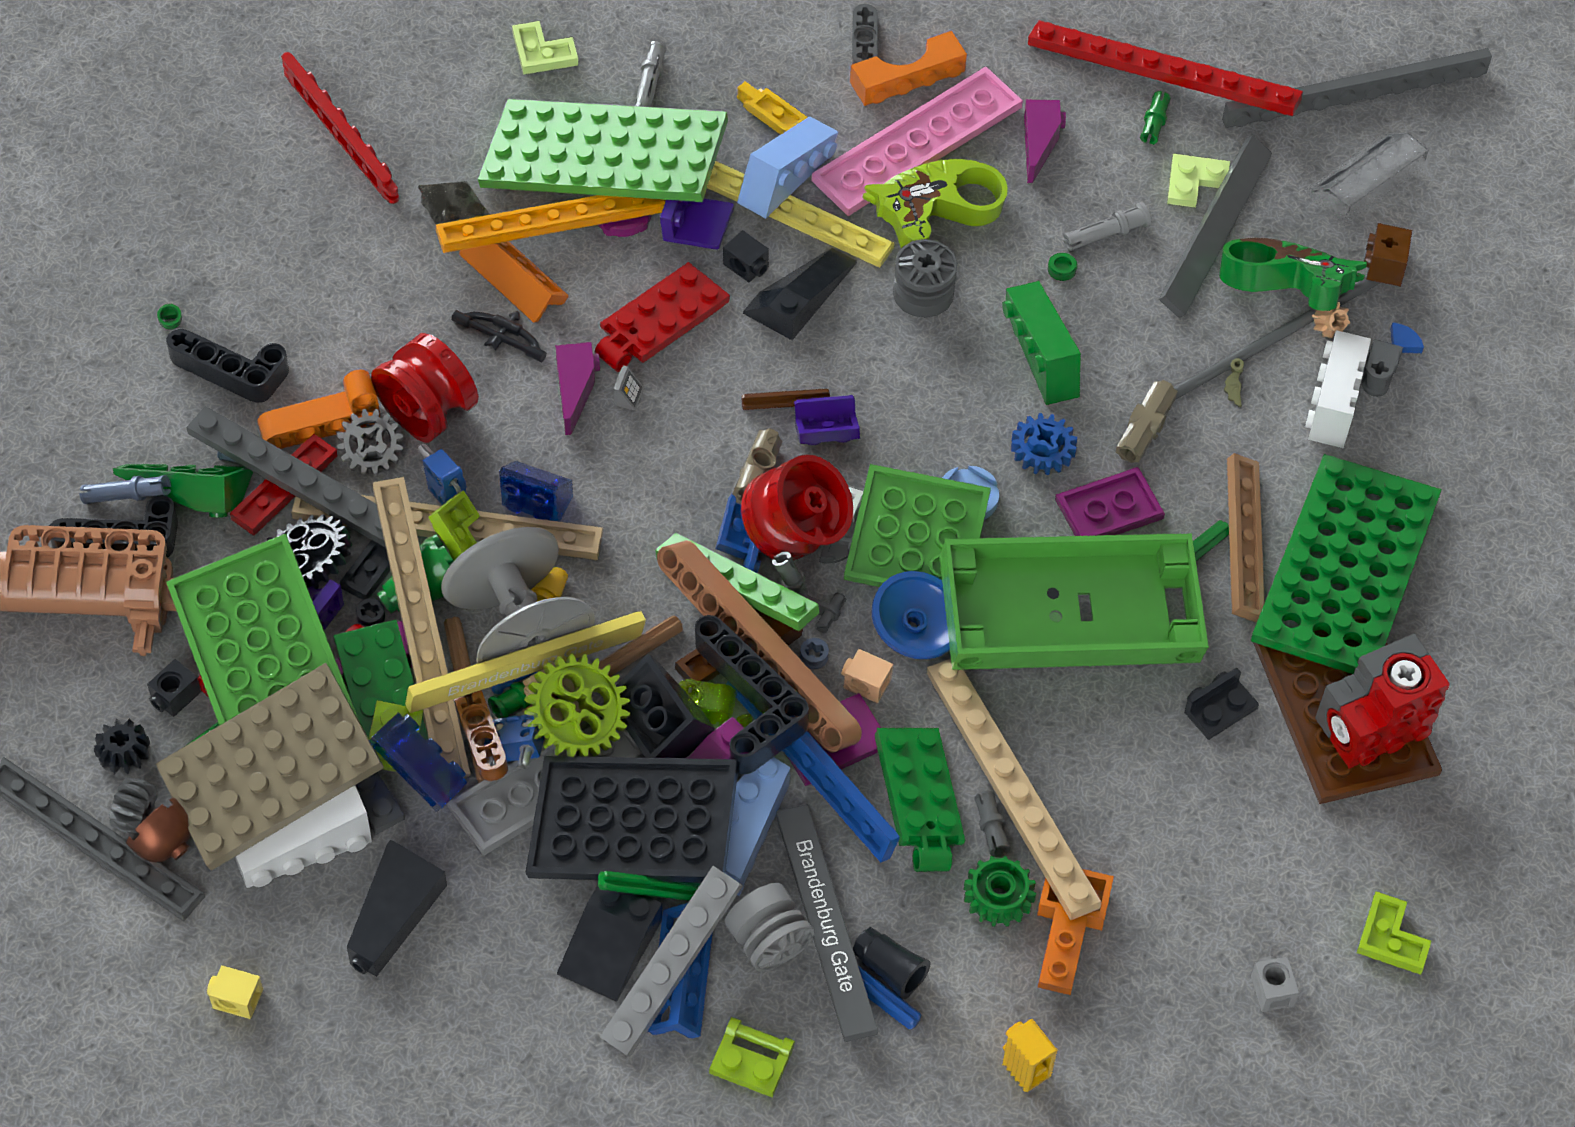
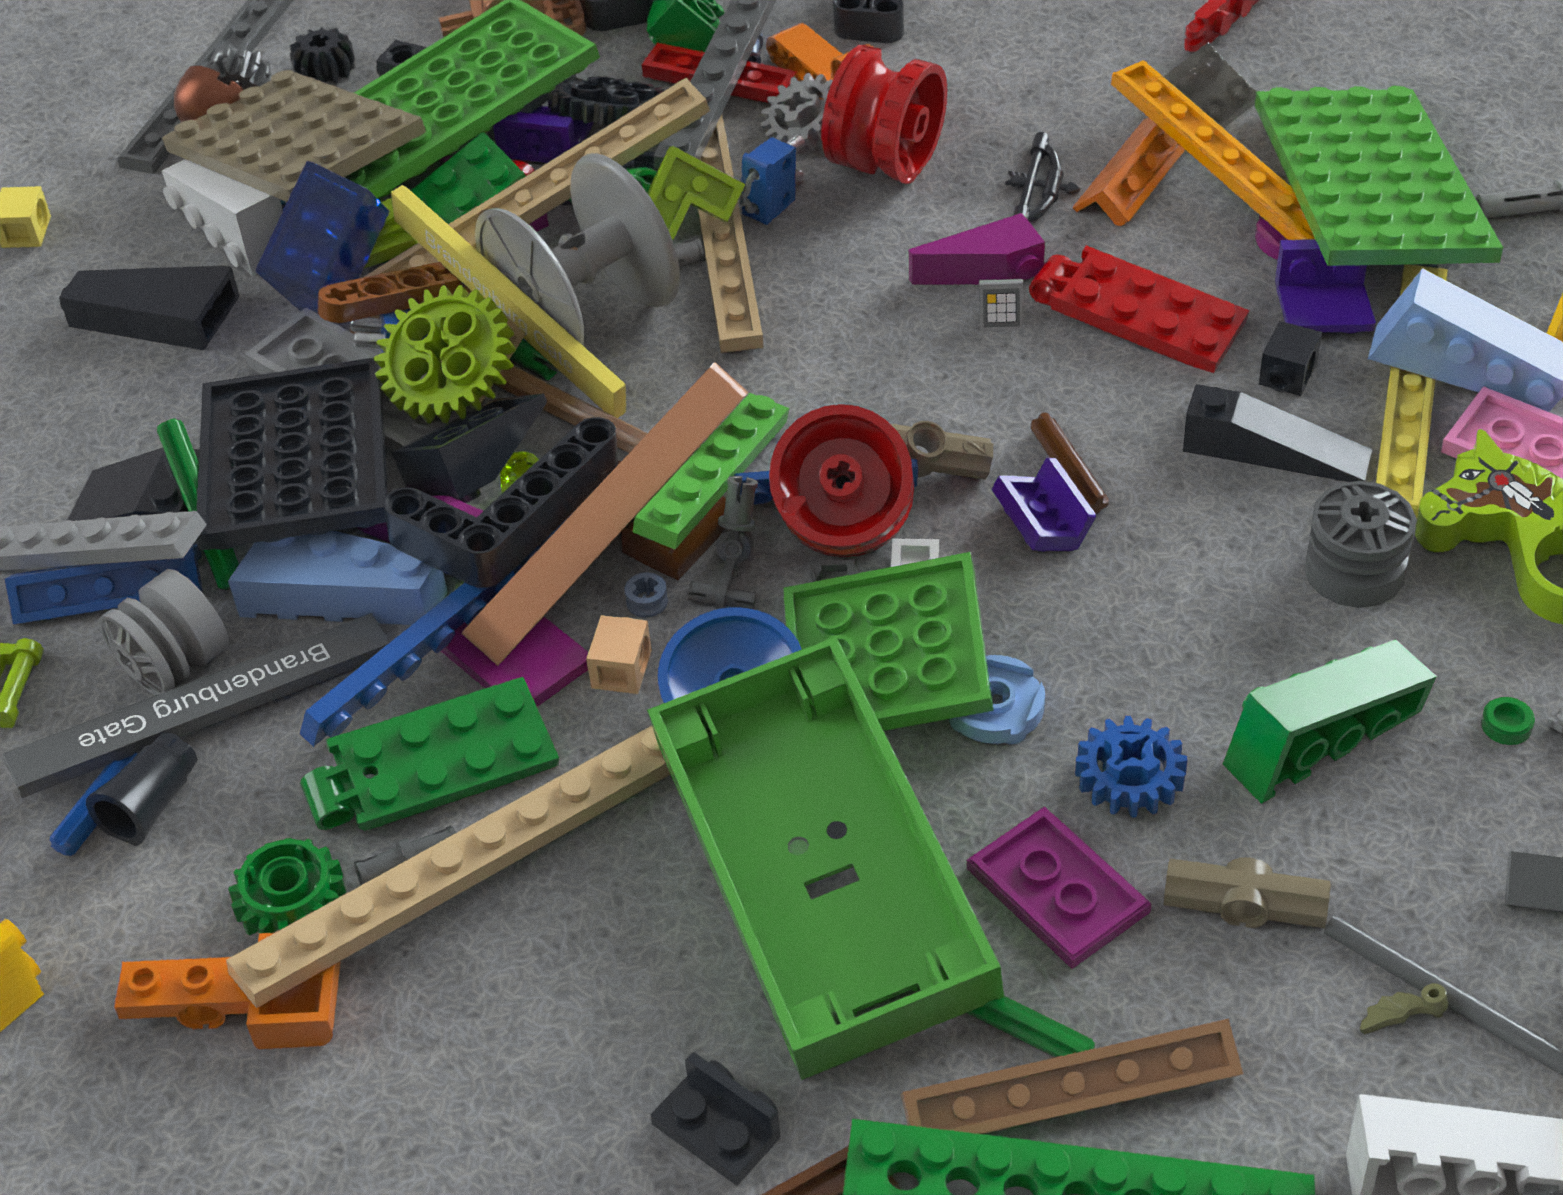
camera: 80 degrees right, 10 degrees down
(534, 491) = (789, 255): clear blue slope -> none
(538, 55) = (1514, 93): yellowish green plate -> none
(552, 585) = (651, 317): yellow cone -> none

